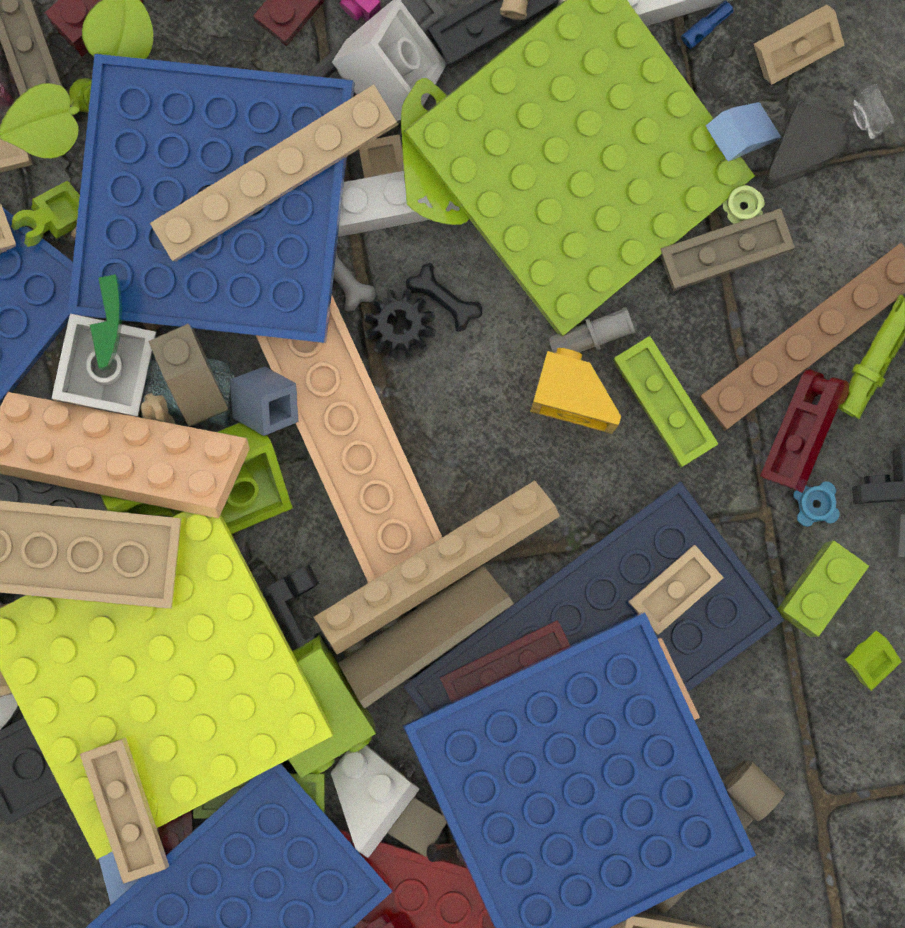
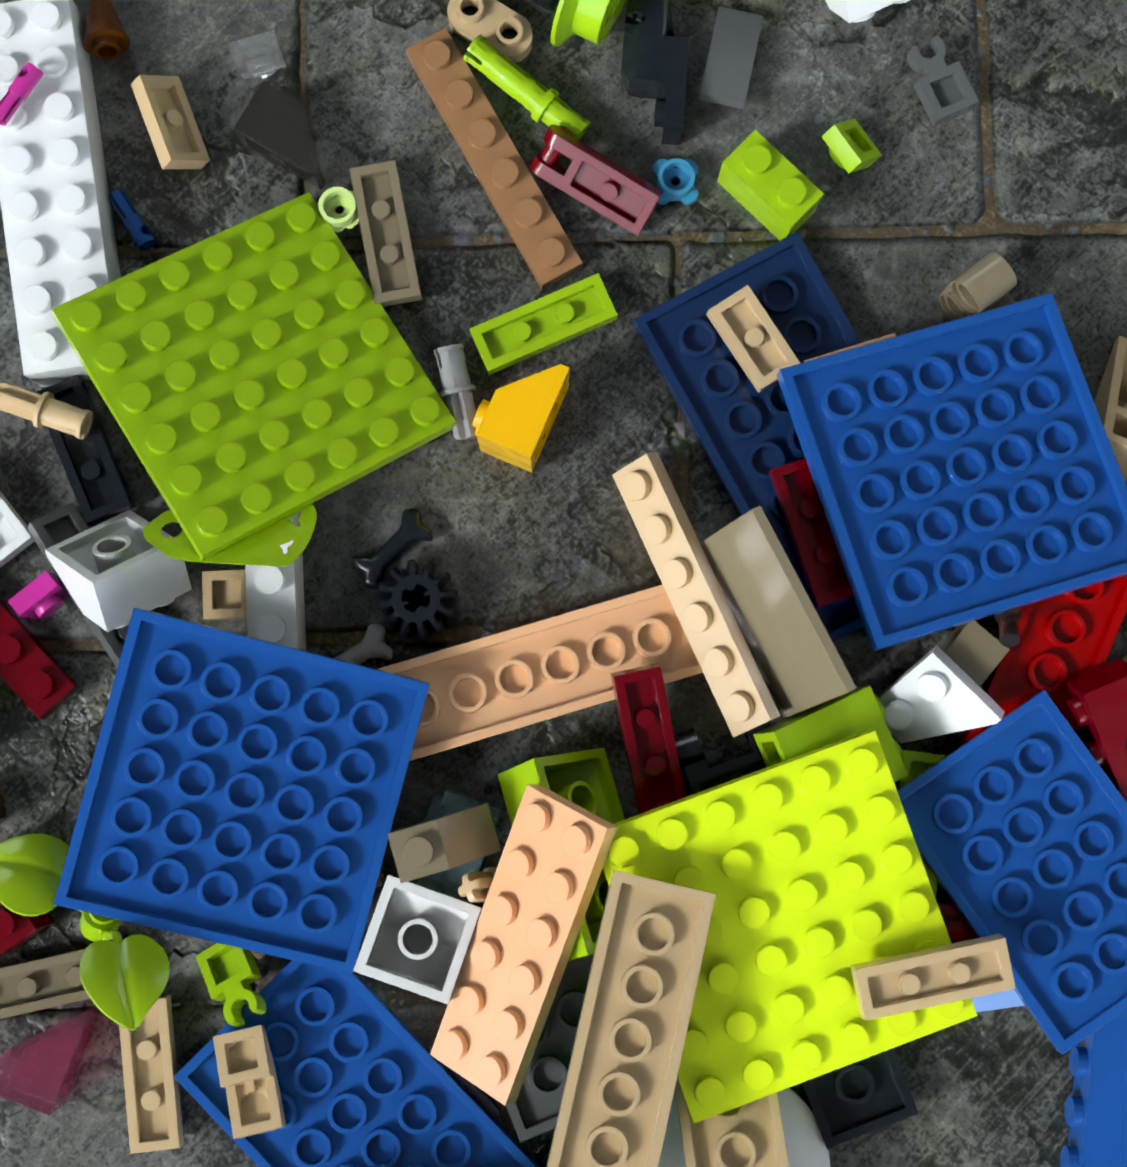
camera: 85 degrees left, 0 degrees up
(107, 334) = (386, 931): green slope -> none
(264, 400) = (483, 761): sand blue brick -> none
(274, 173) = (227, 712): tan plate -> none
(305, 542) = (648, 736): none -> dark red plate
(742, 130) = (258, 195): light blue slope -> none

